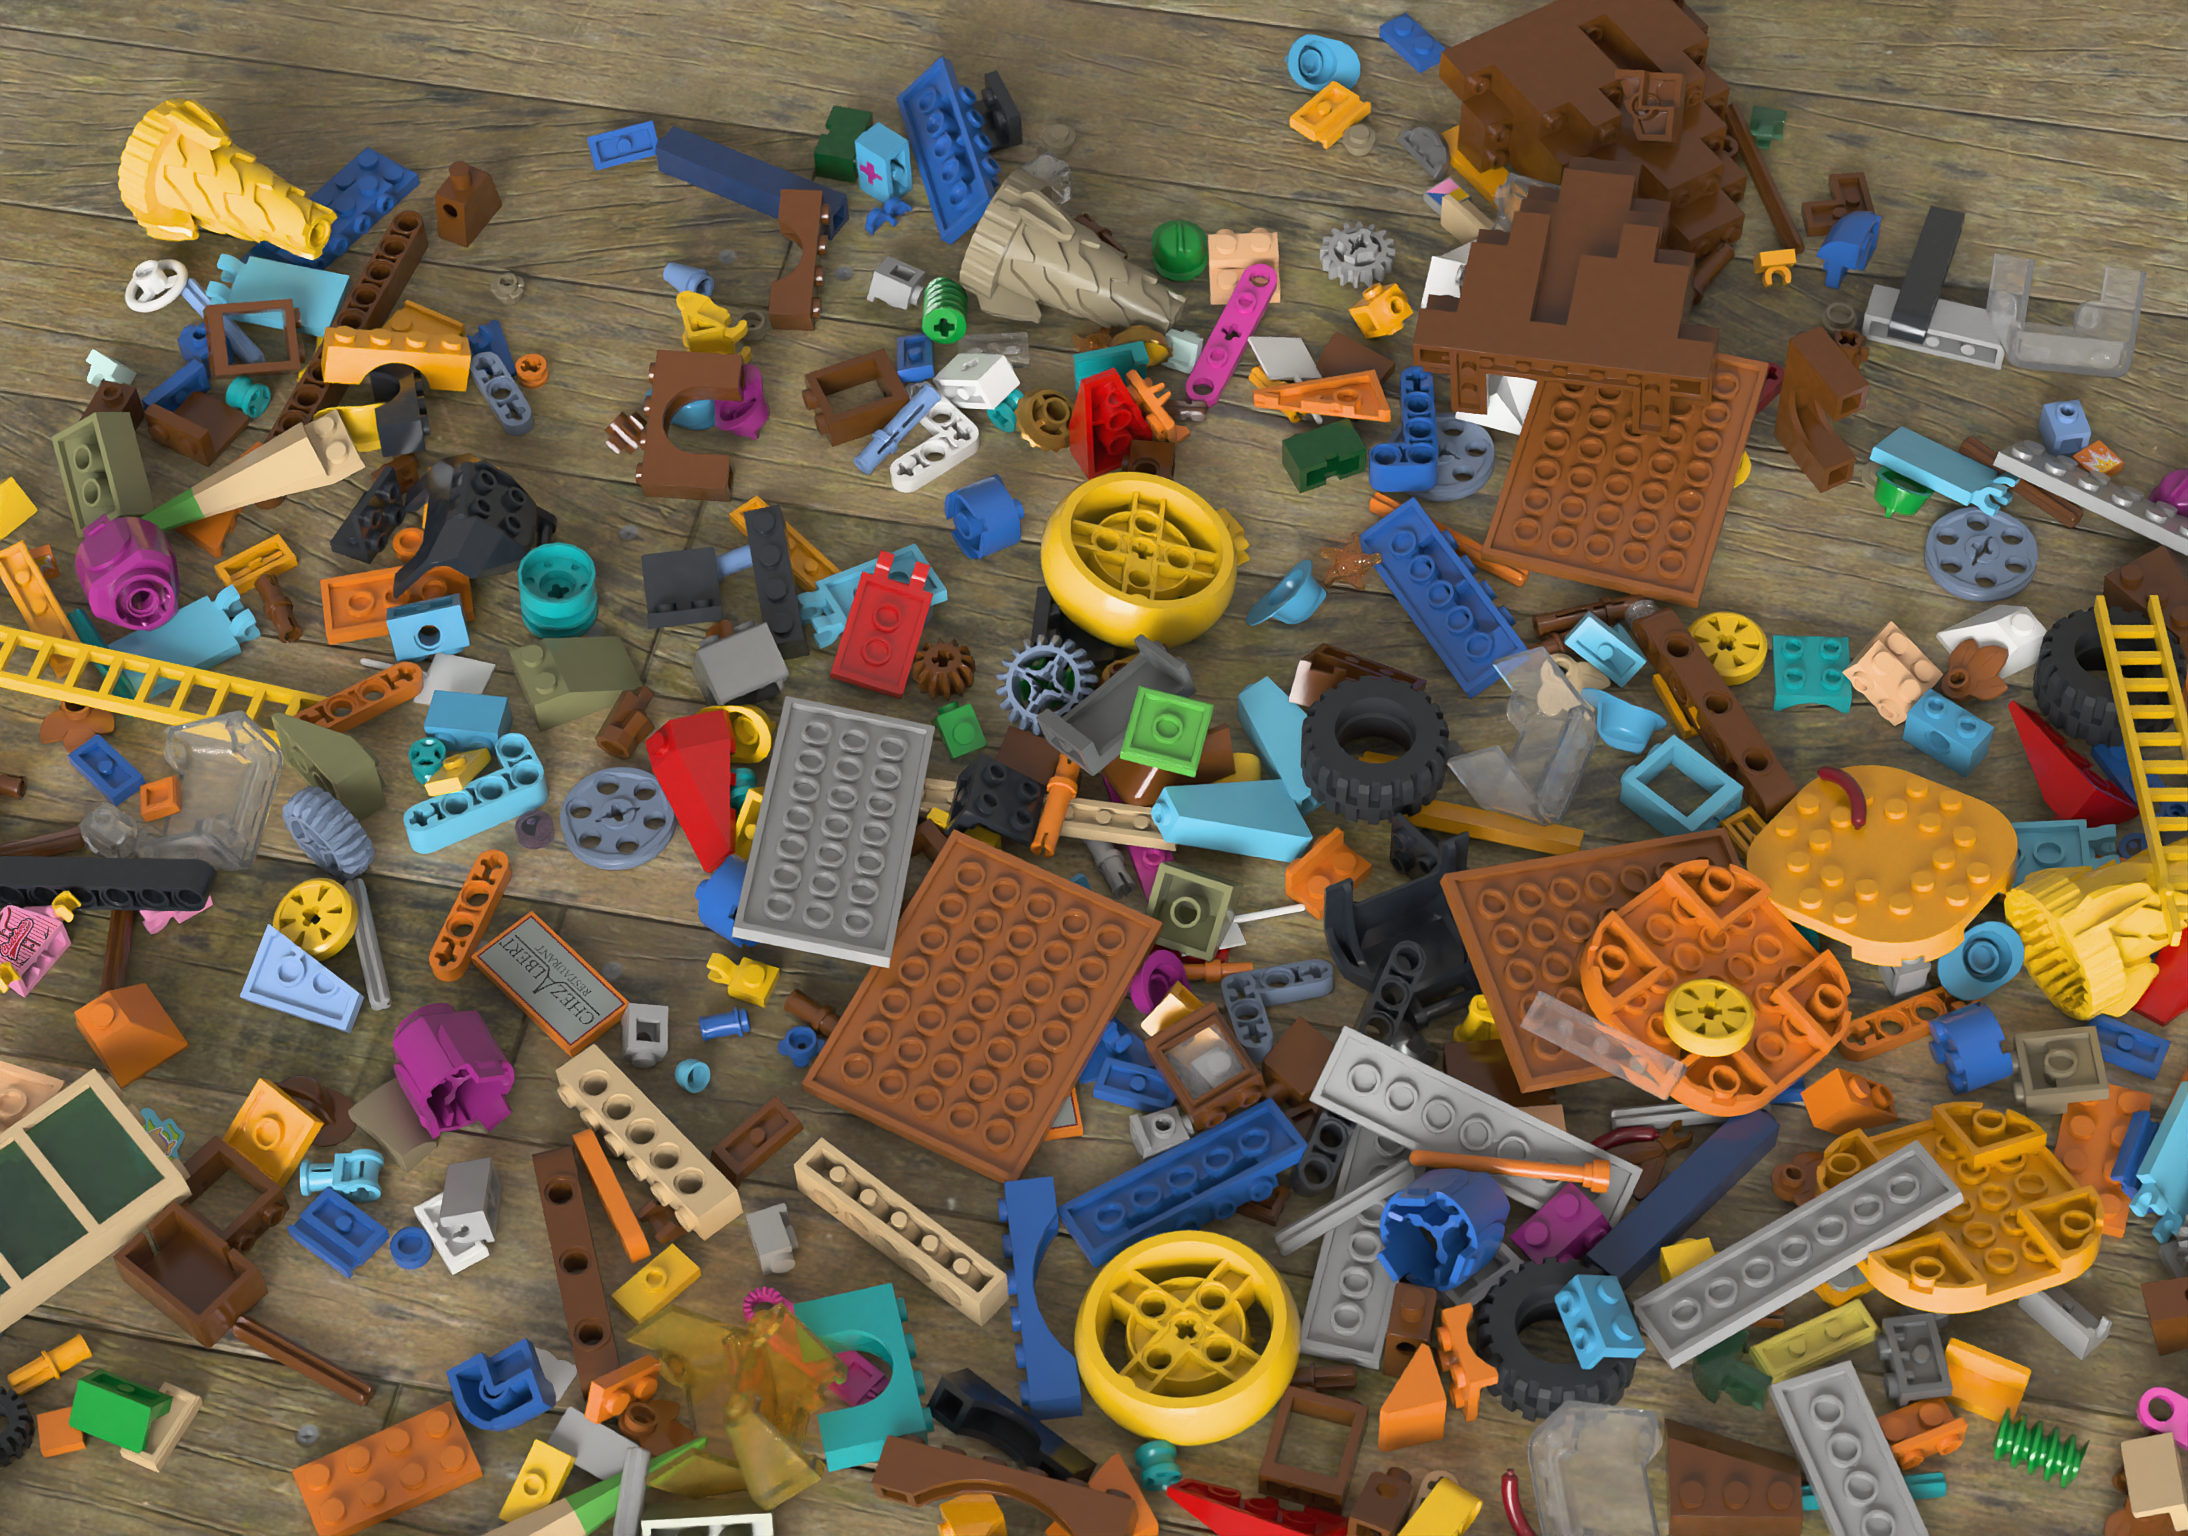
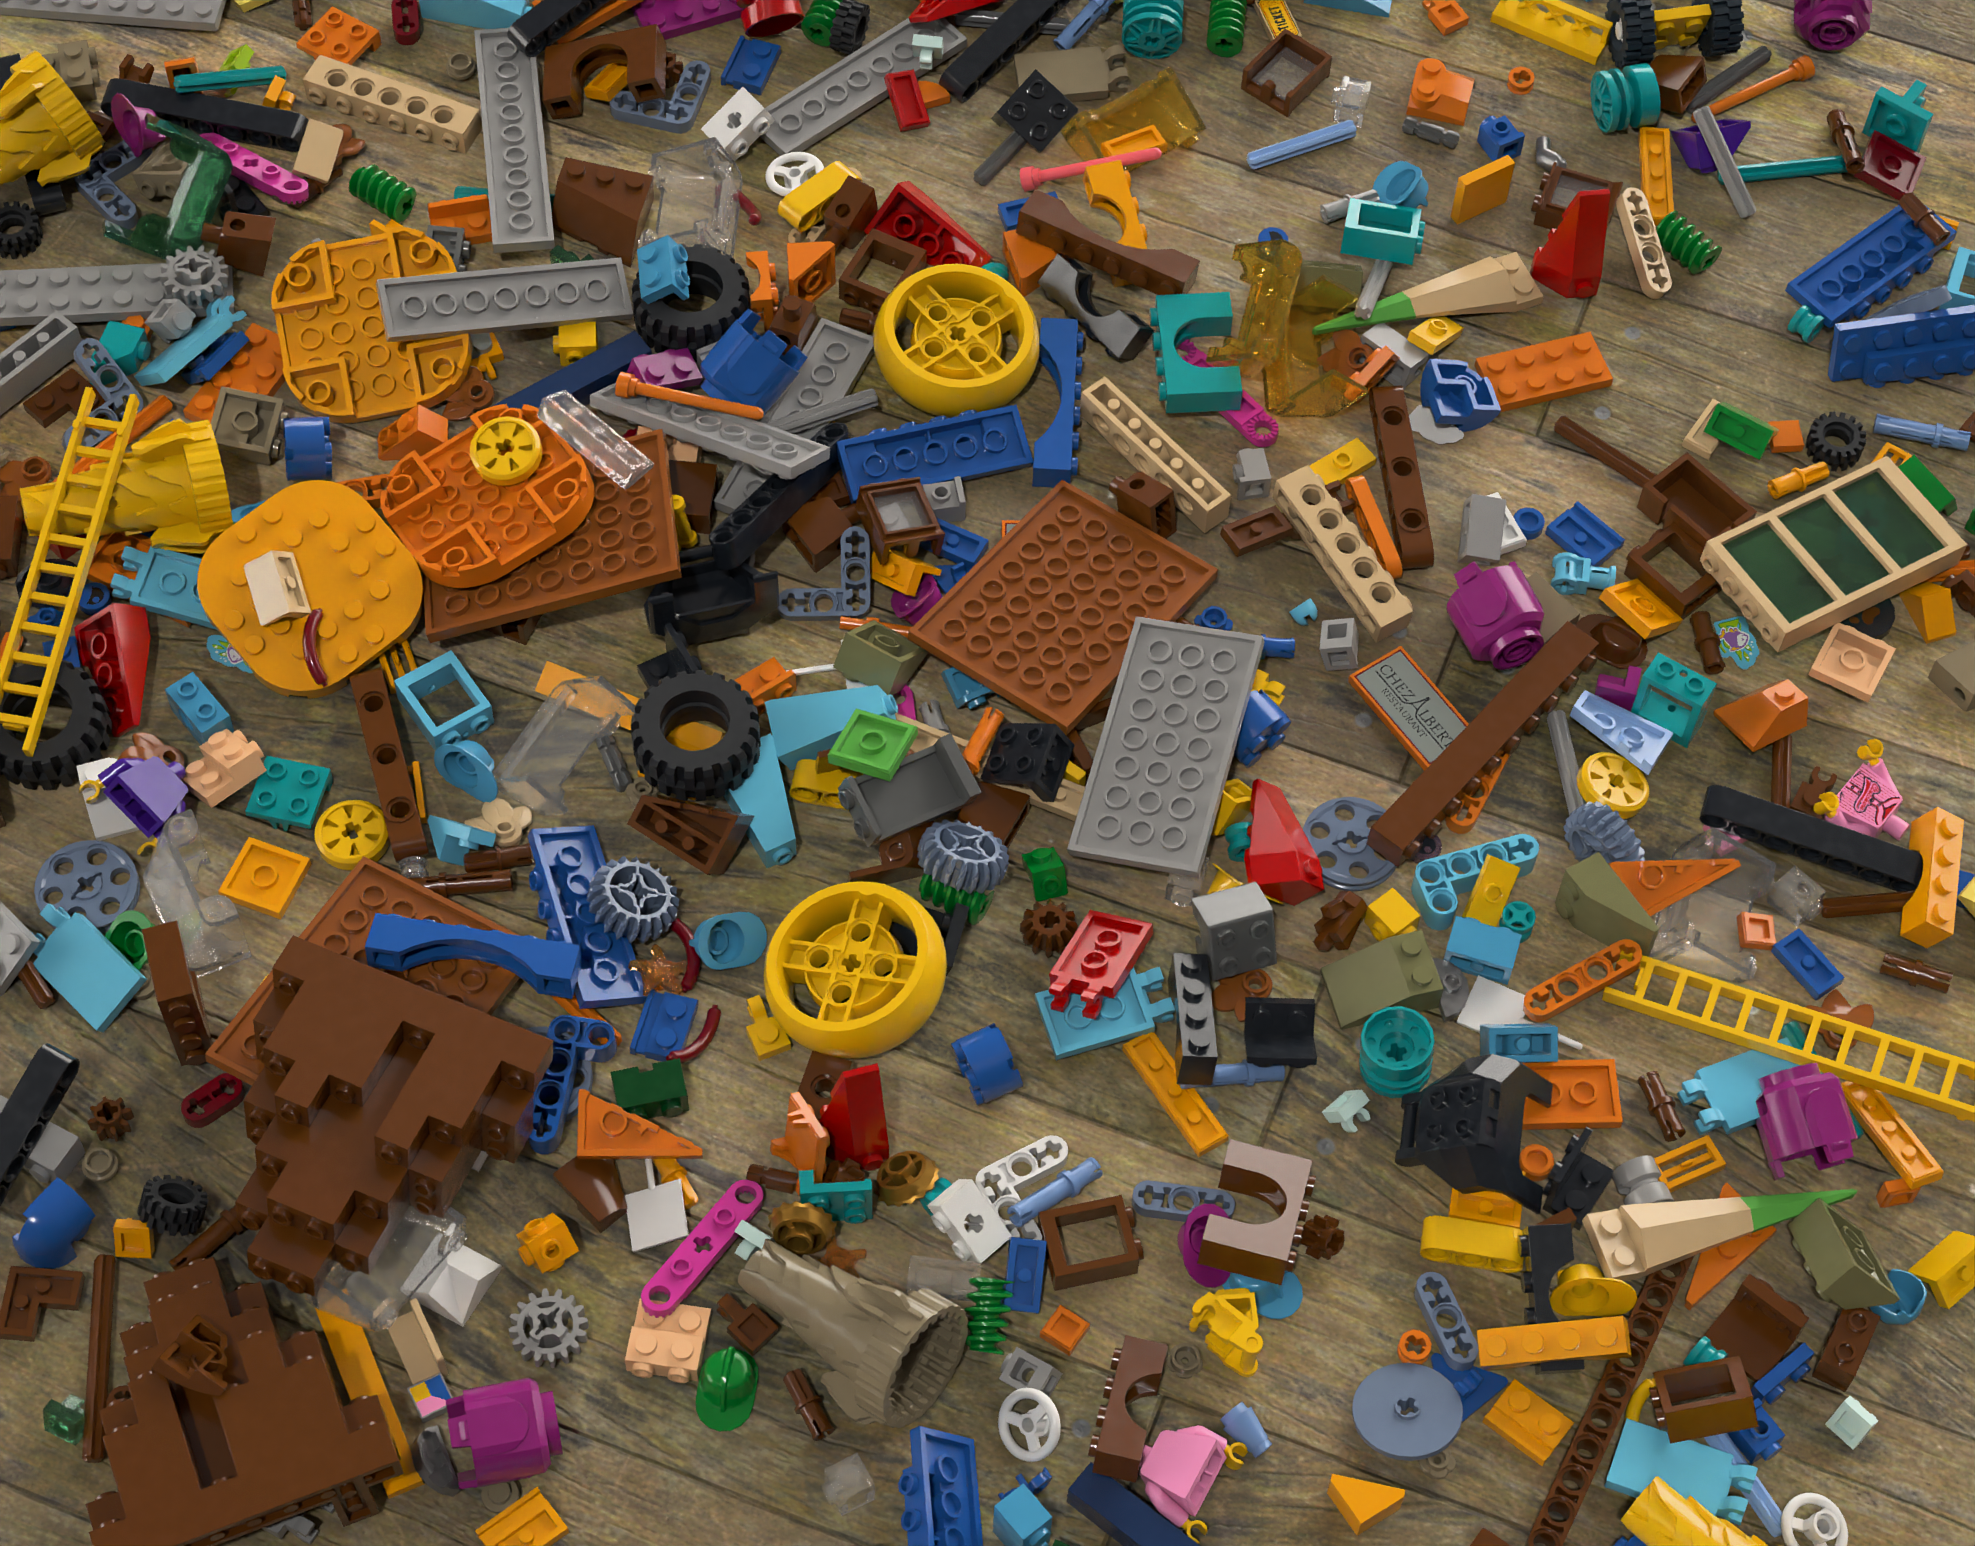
camera: 175 degrees left, 5 degrees up
(43, 470) = (1911, 1295): none -> dark azure hair
(78, 956) = (1809, 793): none -> reddish brown plate
(189, 1116) = (1707, 642): none -> reddish brown pin
(248, 1003) = (1692, 690): none -> teal window
(263, 784) = (1668, 881): none -> orange wing
(302, 522) = (1640, 1183): none -> light grey wheel
(305, 1041) = (1619, 690): none -> magenta panel
(466, 928) = (1482, 744): none -> reddish brown brick
(498, 448) = (1471, 1244): none -> yellow beam
(503, 682) = (1455, 989): none -> flat silver plate
(534, 291) = (1419, 1433): none -> sand blue piece
(568, 738) = (1391, 916): none -> yellow brick
(573, 242) = (1363, 1502): none -> light orange slope
(609, 551) = (1347, 1106): none -> light aqua tile
(742, 234) = (1182, 1470): none -> bright pink torso
(756, 443) = (1173, 1191): none -> sand blue beam
(870, 335) = (1064, 1330): none -> orange tile
(888, 245) = (1034, 1424): none -> white piece
(904, 1158) = (1146, 502): none -> reddish brown torso
(1181, 283) = (749, 1326): none -> reddish brown plate
(1288, 510) = (702, 1041): none -> dark red piece
(1327, 521) = (663, 1025): none -> blue plate
(1328, 607) = (693, 960): none -> dark red piece
(1365, 148) = (508, 1430): none -> magenta piece
(1375, 609) = (639, 905): none -> sand blue gear
(1463, 501) = (408, 942): none -> blue arch
(1748, 258) = (172, 1205): none -> black tyre
(1800, 595) = (265, 877): none -> light orange tile
(1828, 504) = (209, 925): none -> clear windscreen
(1908, 820) = (276, 587): none -> tan panel
(1960, 614) = (143, 791): none -> torso

